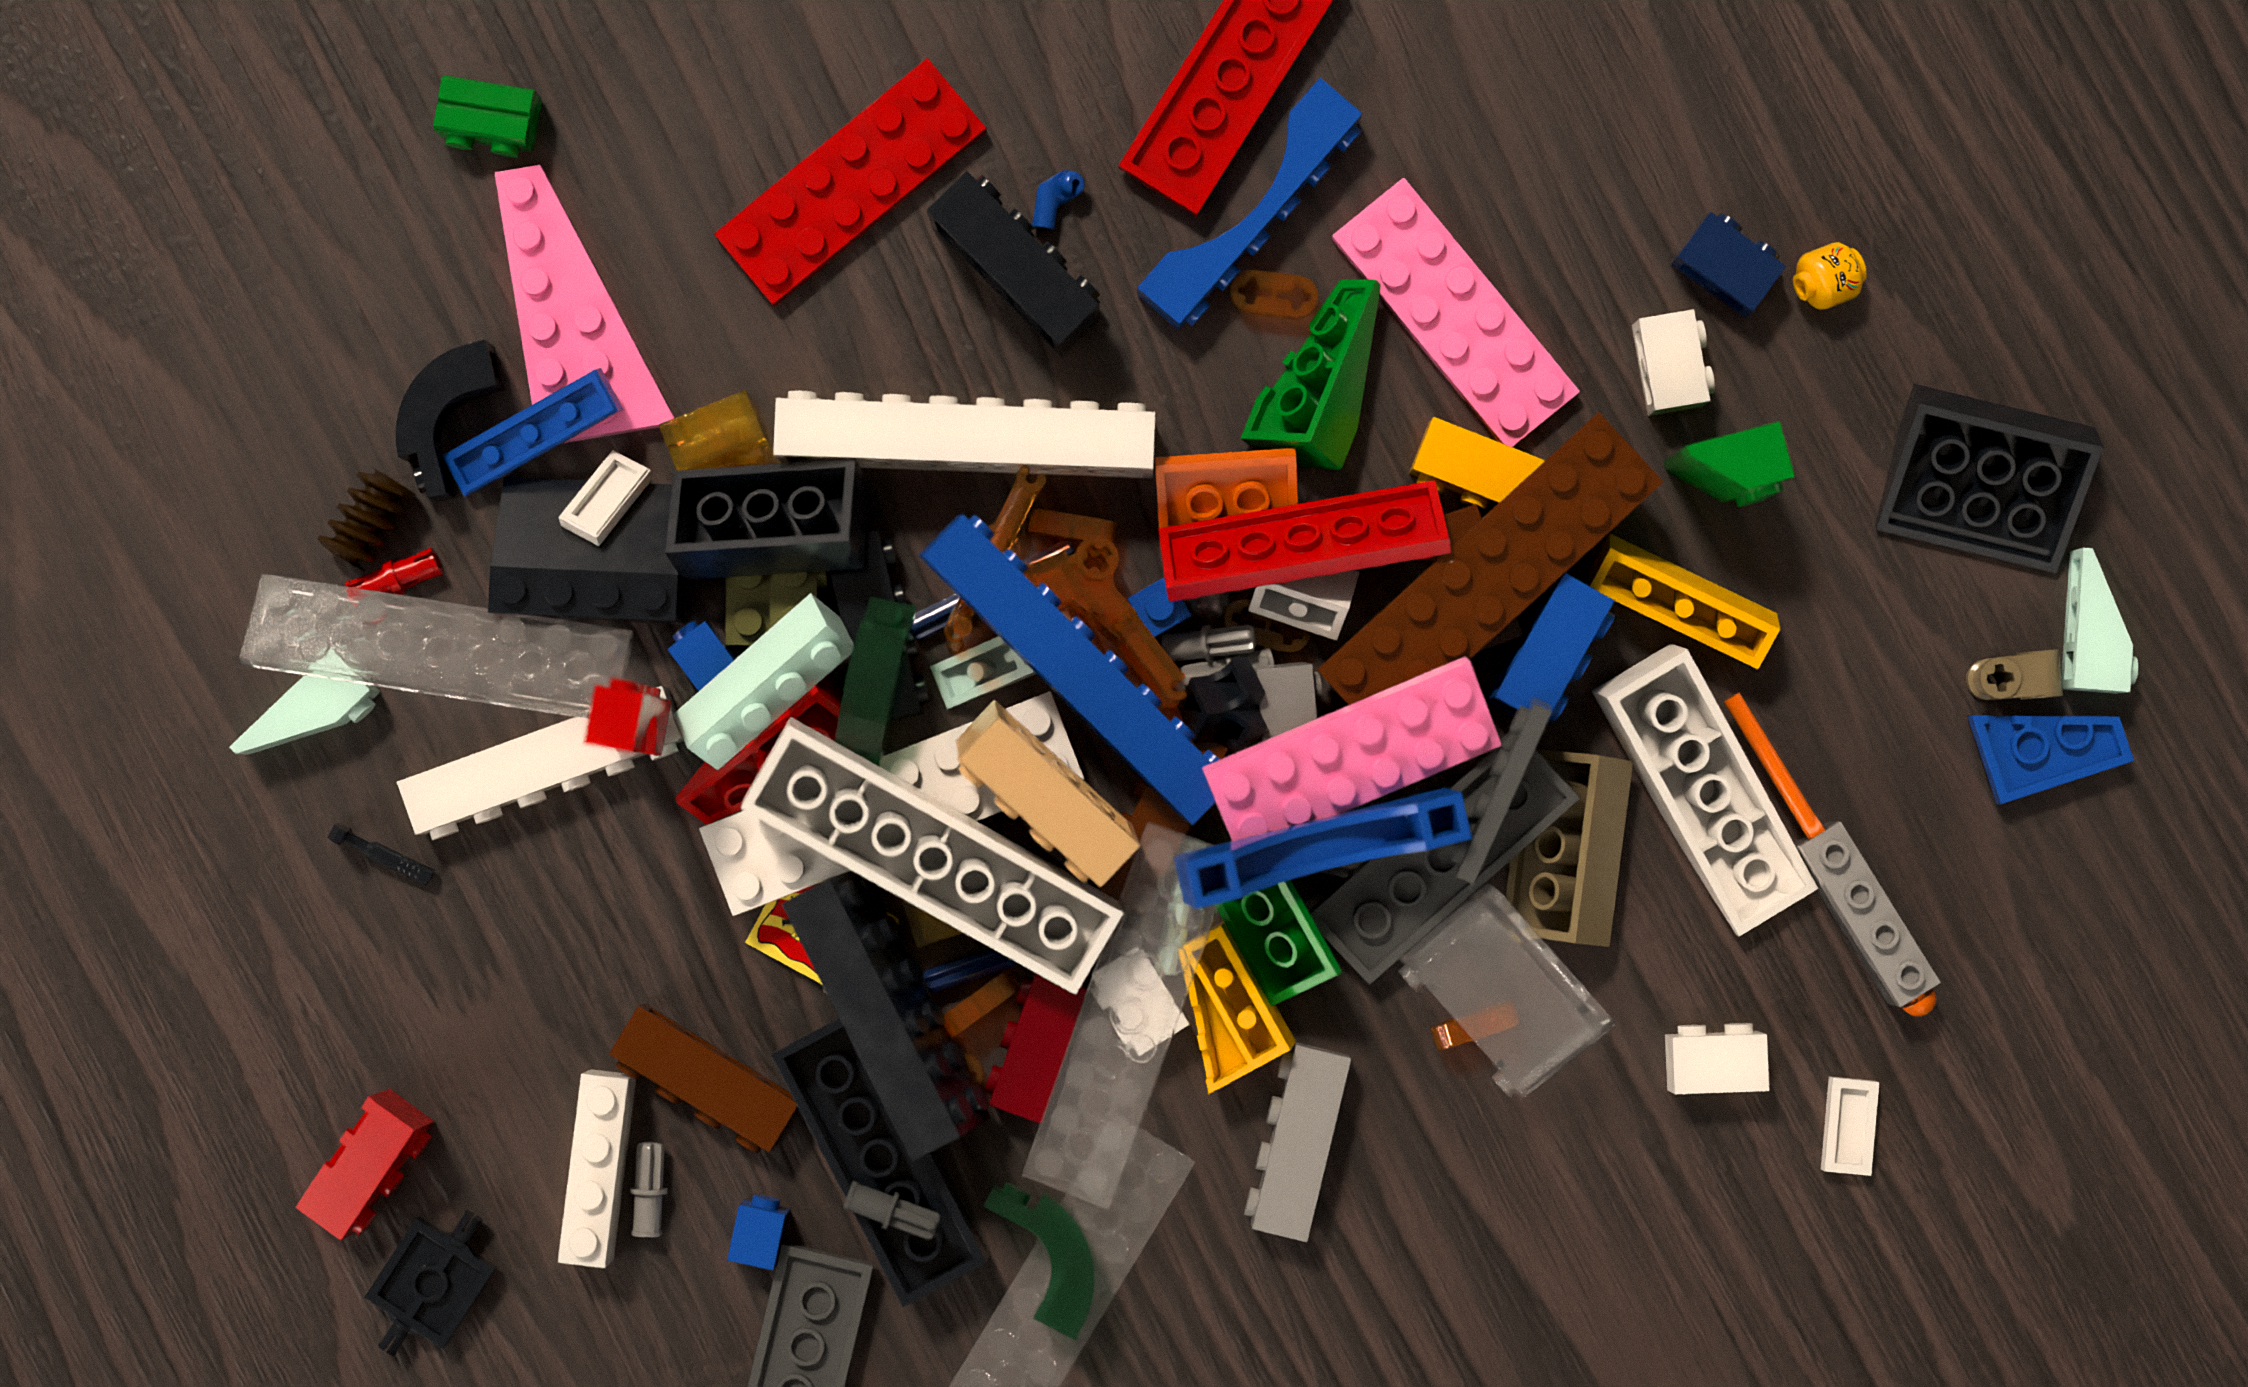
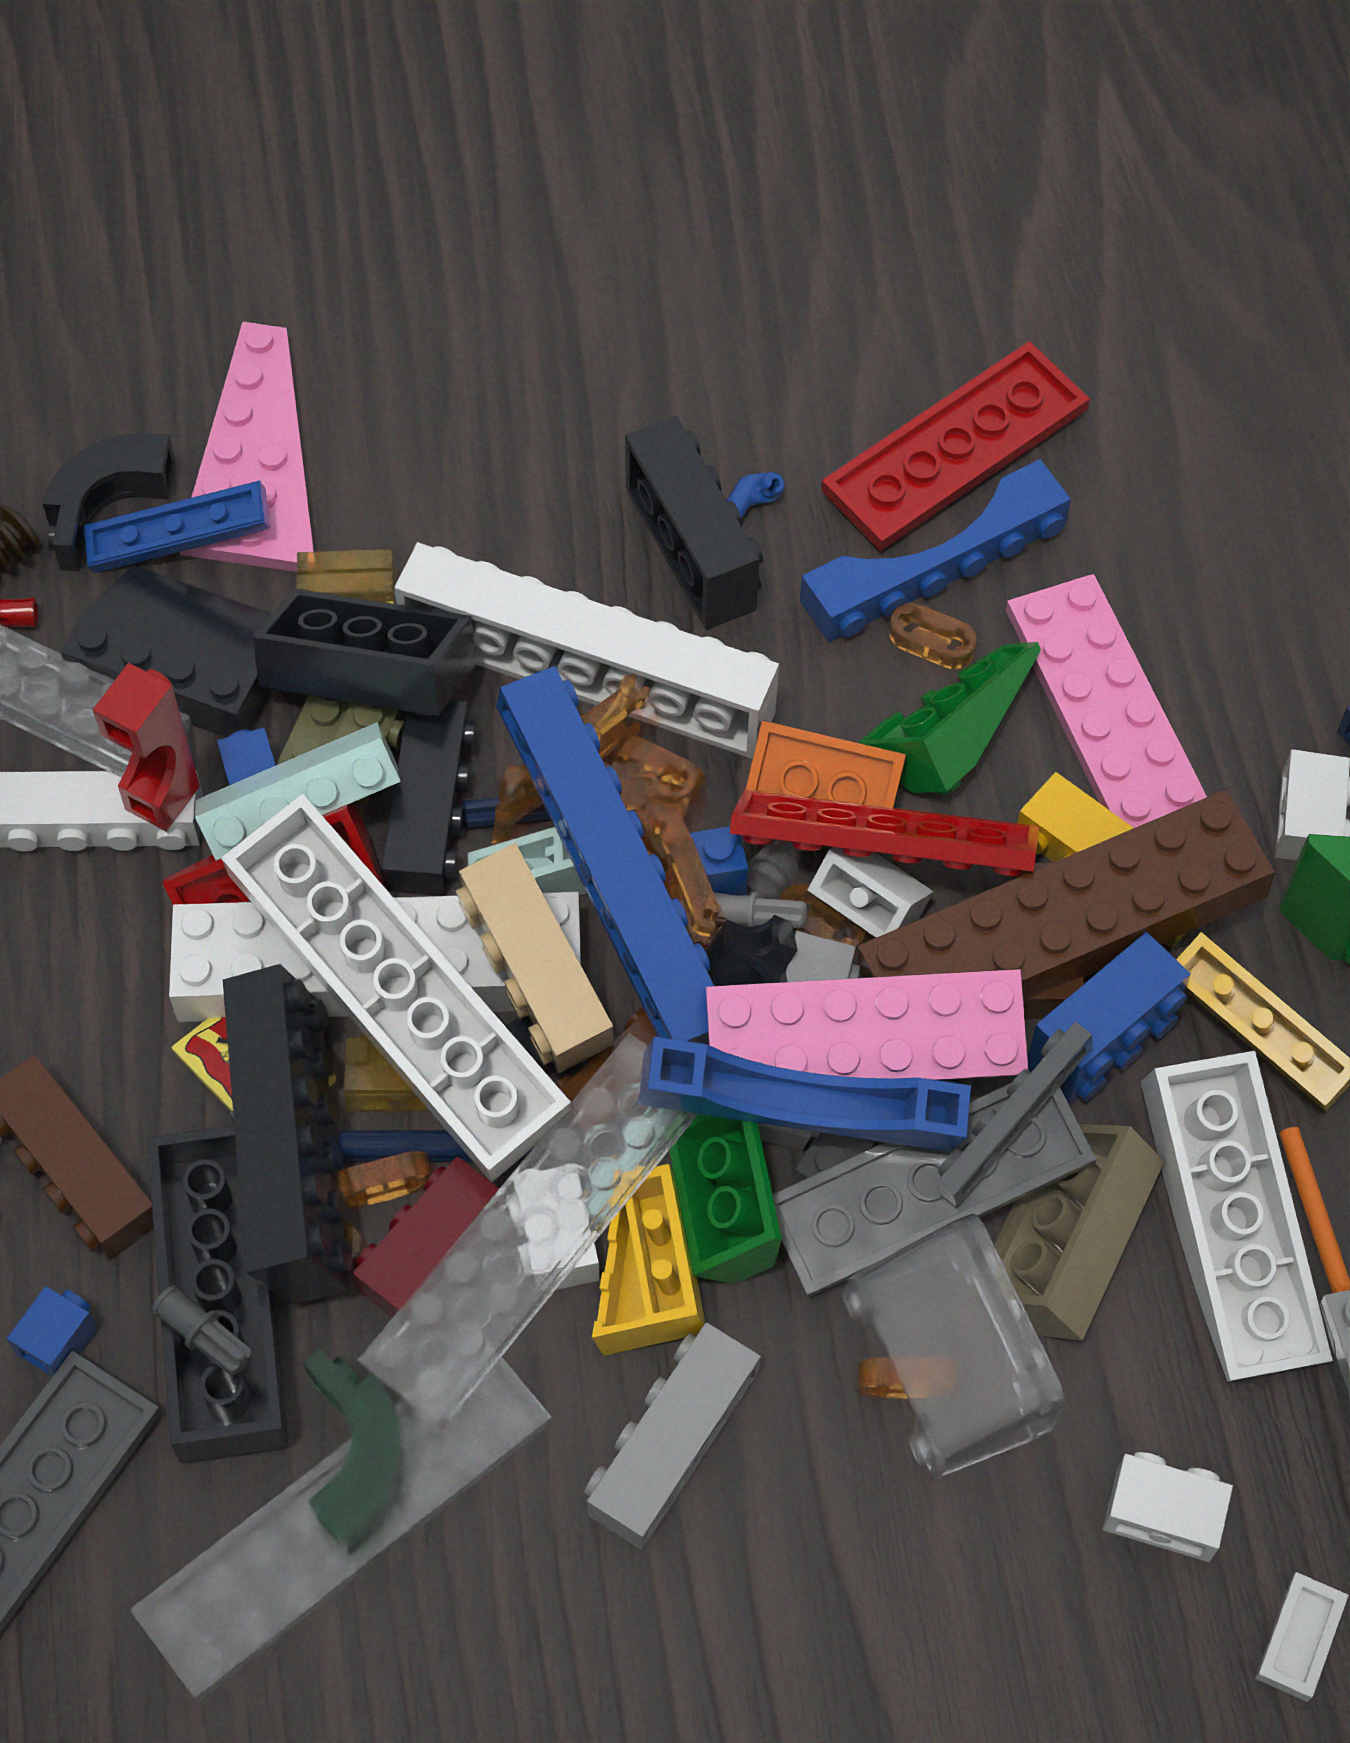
camera: 15 degrees right, 25 degrees down
(487, 115) = (257, 275): green brick -> none
(605, 498) = (218, 601): white tile -> none
(850, 182) = (558, 428): red plate -> none
(873, 678) = (403, 809): clear green arch -> none

